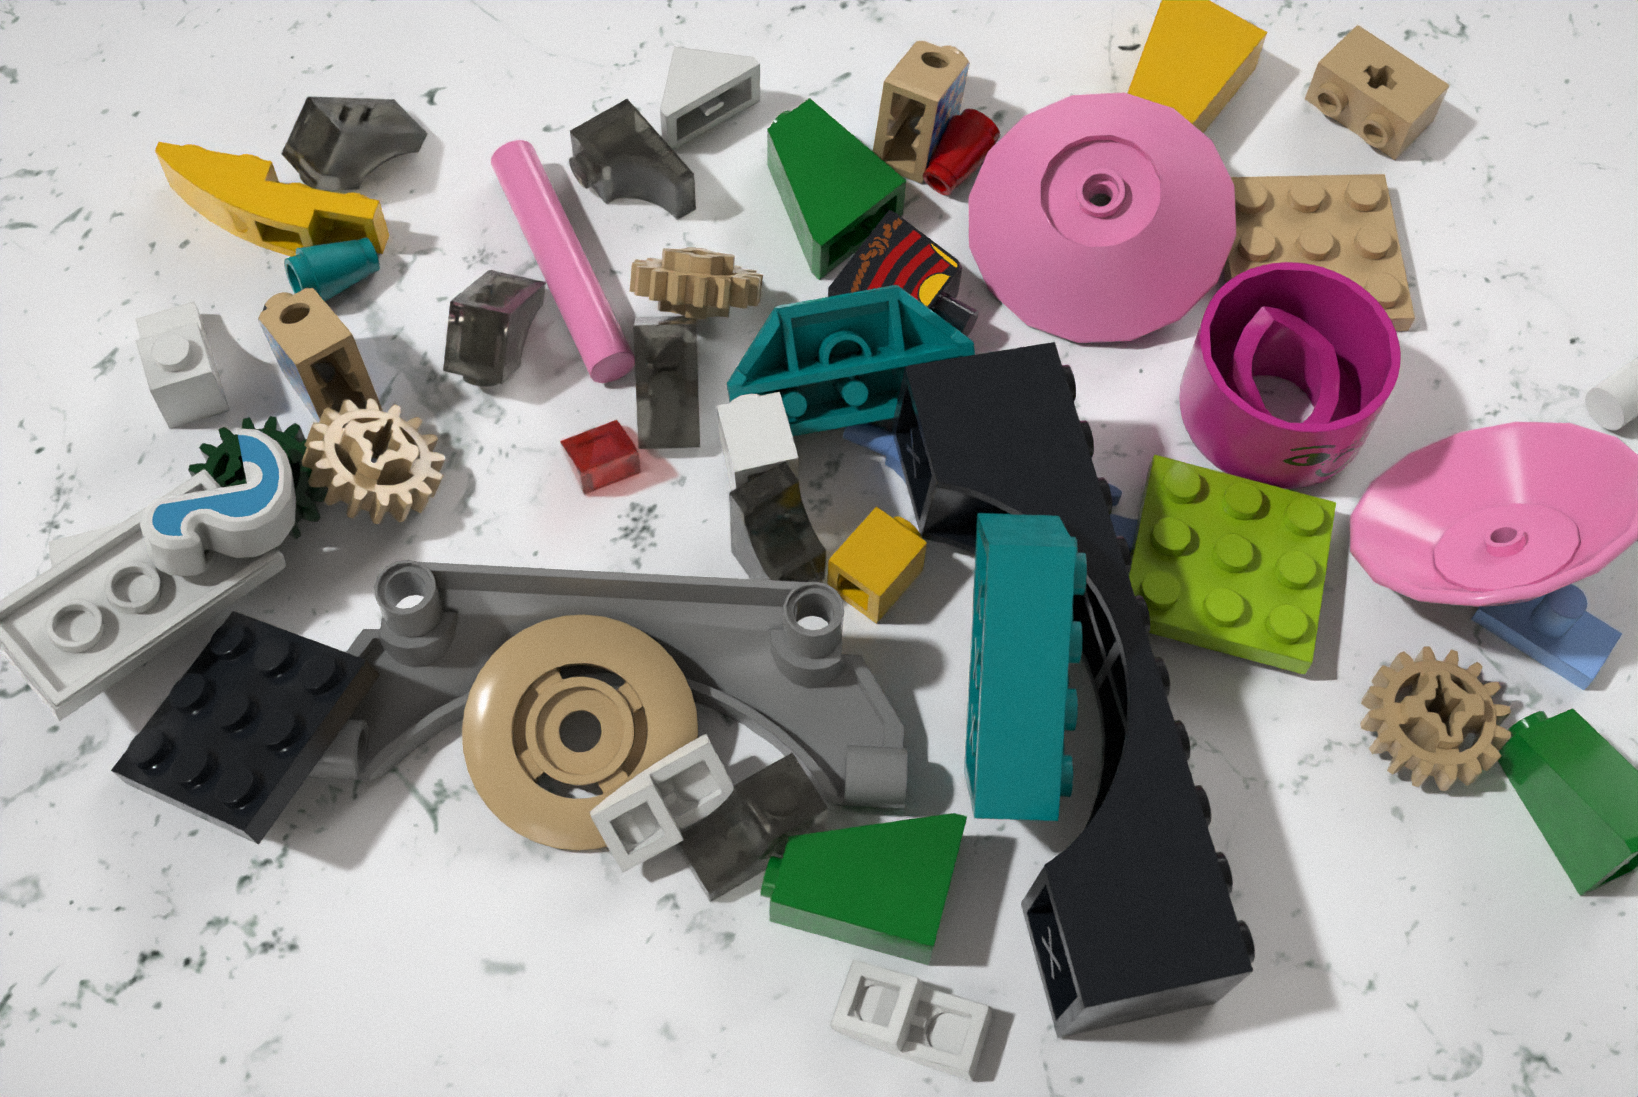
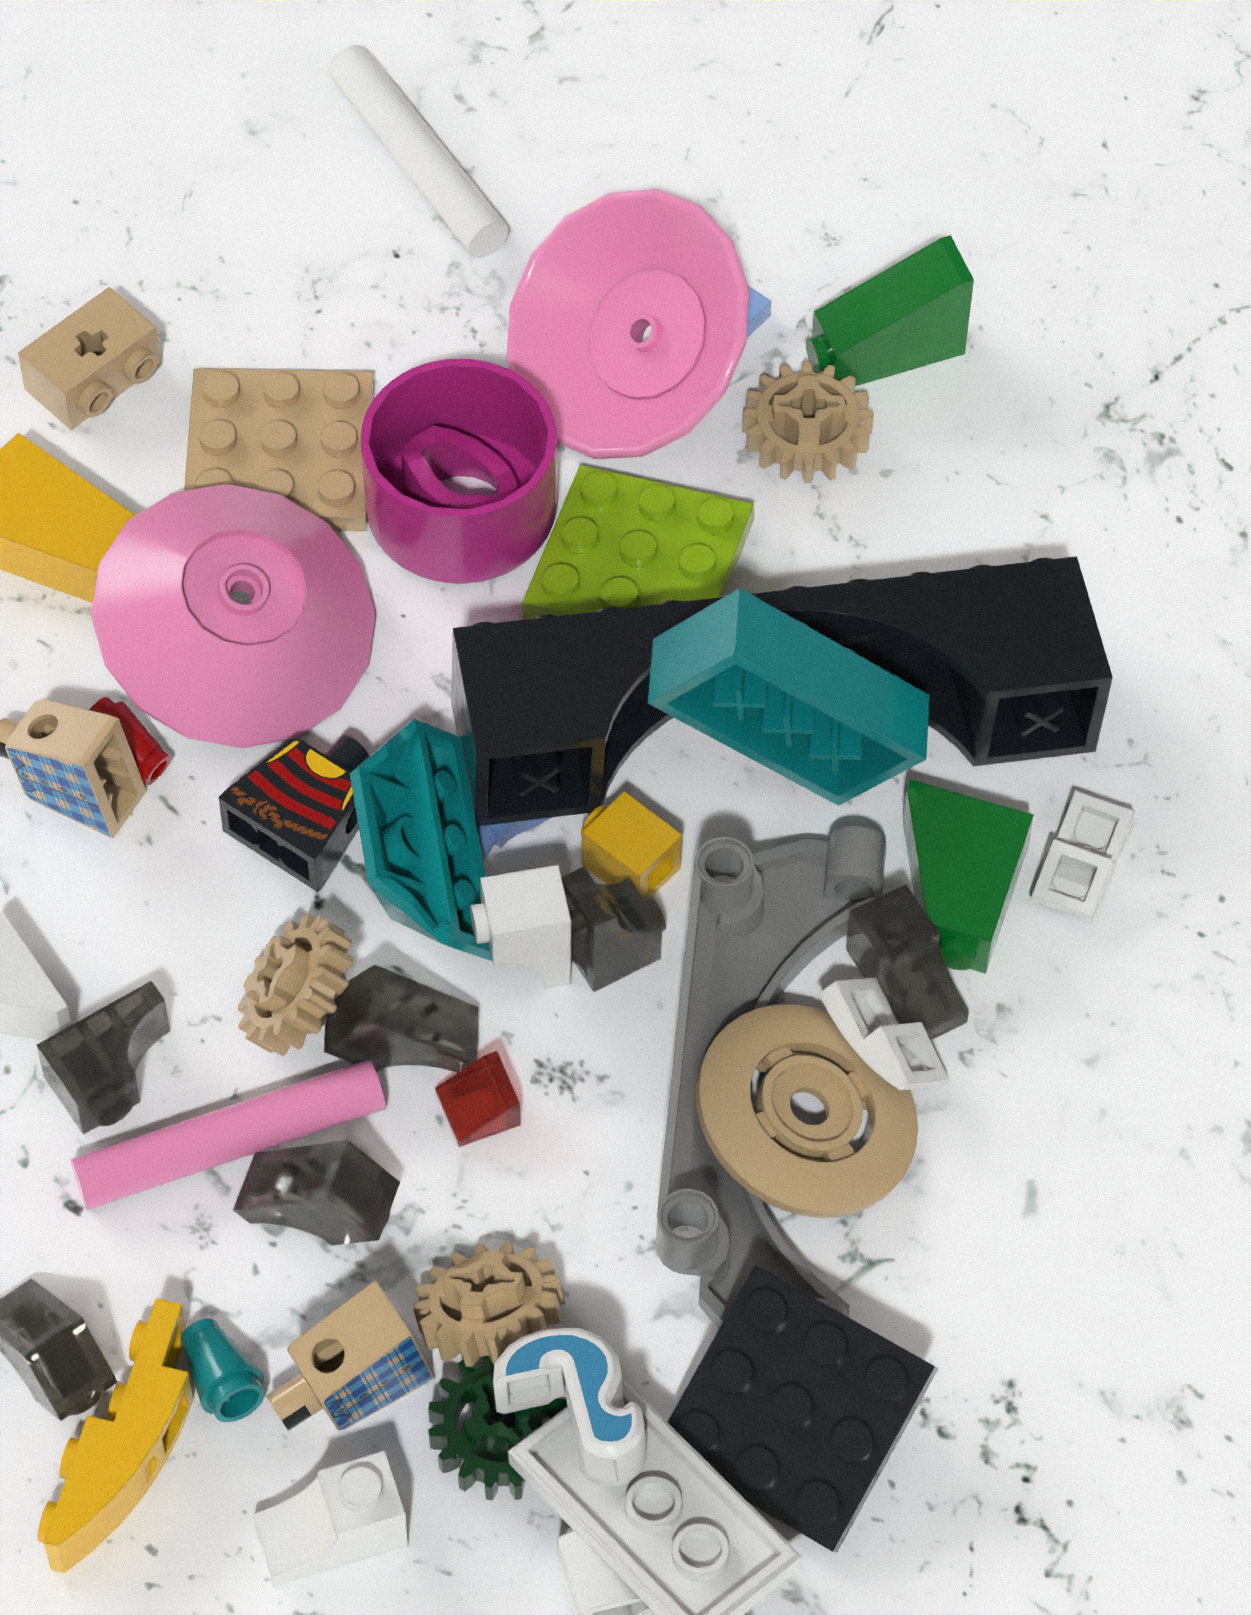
camera: 85 degrees left, 5 degrees down
(829, 184) = (159, 868): green slope -> none

